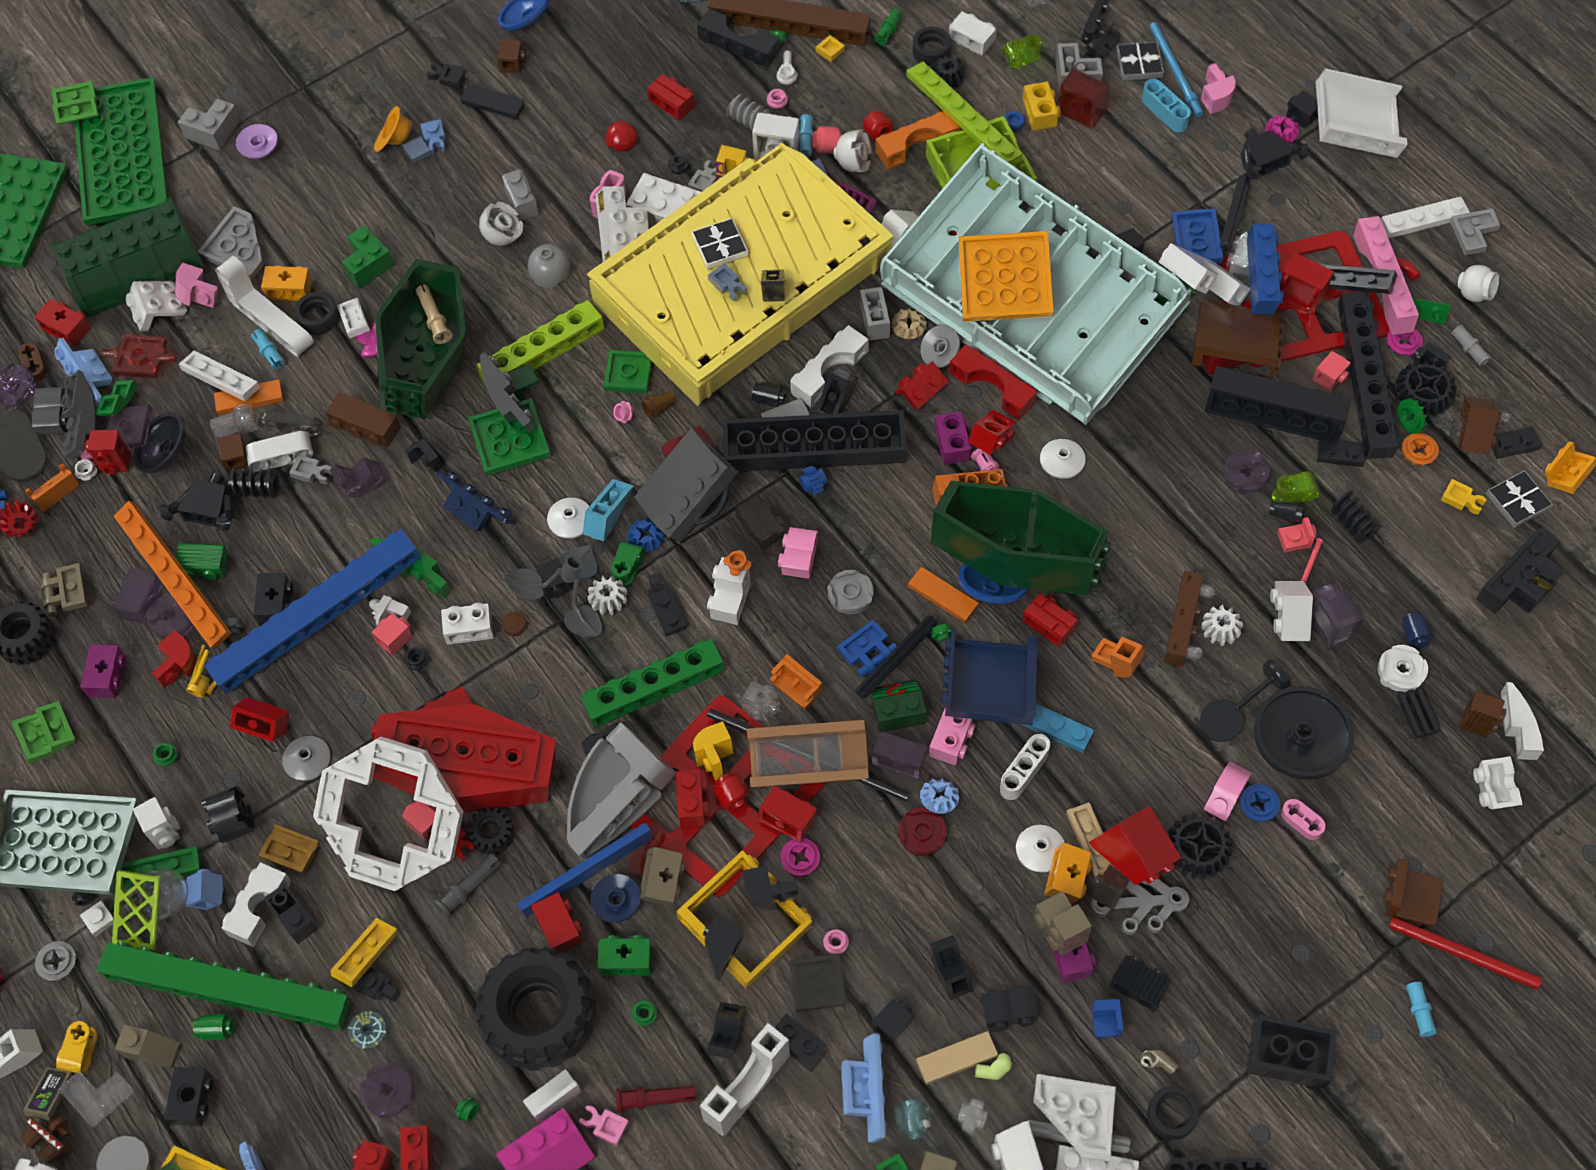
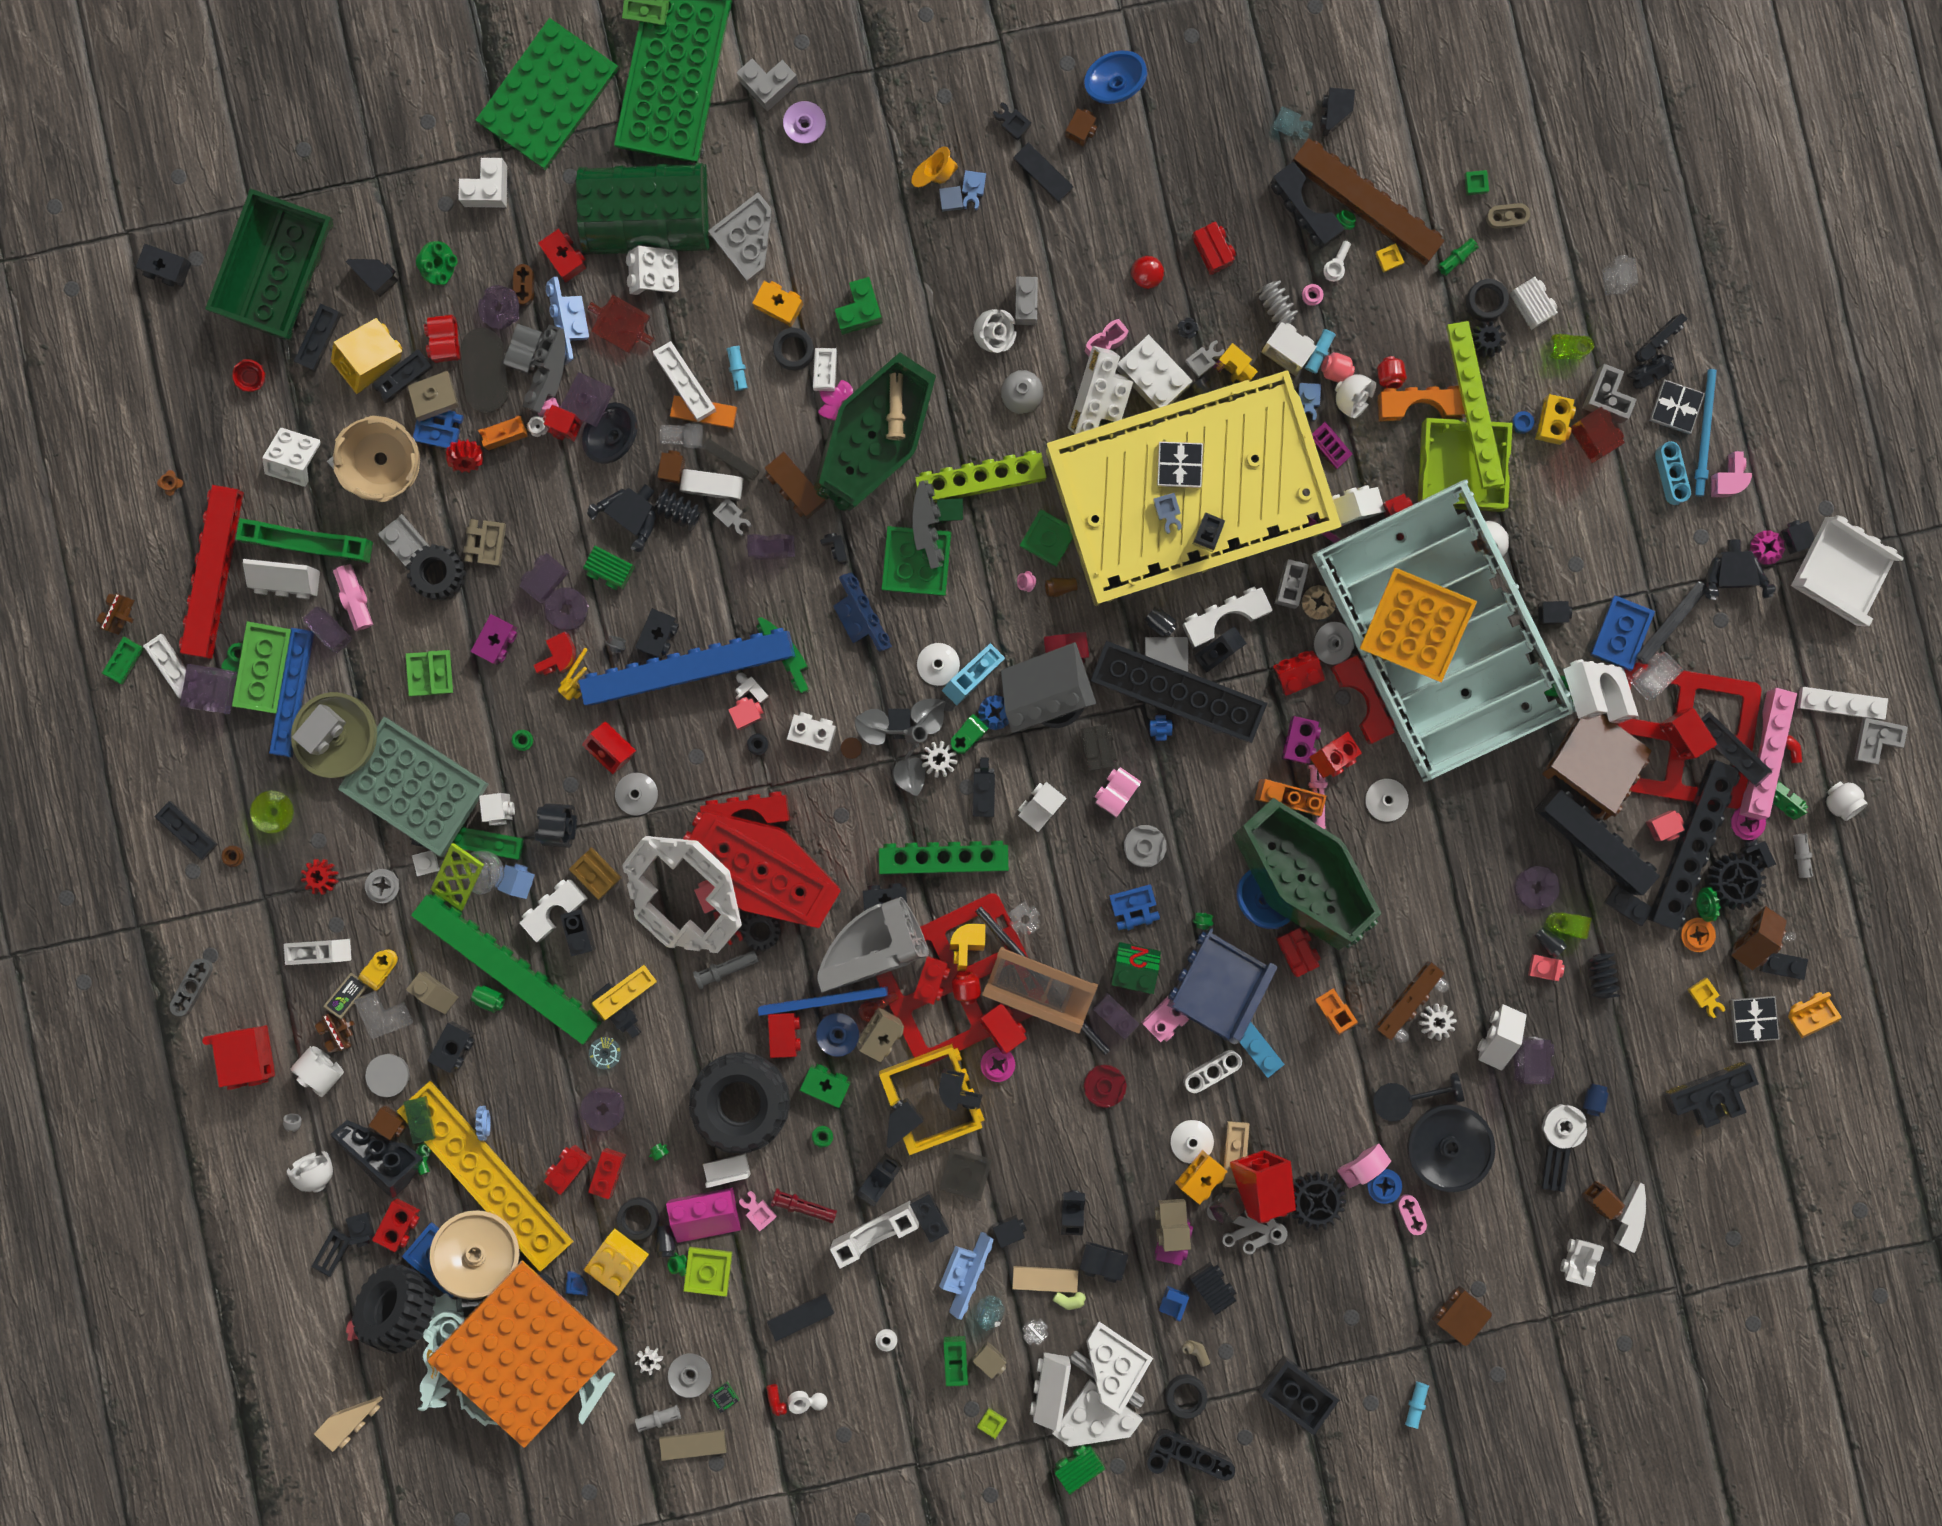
camera: 25 degrees right, 25 degrees up
(119, 398) = (582, 369): green slope -> none
(172, 575) = (579, 575): orange plate -> none
(191, 288) = (686, 271): bright pink brick -> none
(259, 309) = (747, 330): white beam -> none
(737, 556) = (1060, 791): orange plate -> none
(796, 682) = (1061, 911): orange hinge -> none
(832, 935) = (994, 1153): bright pink plate -> none
(896, 657) = (1154, 927): black axle -> none
(941, 804) = (1123, 1060): light blue gear -> none
(943, 595) = (1219, 884): orange tile -> none
(1263, 269) = (1658, 707): blue brick -> none
(1312, 559) = (1544, 995): coral piece -> none
(1465, 953) = (1476, 1376): red piece -> none

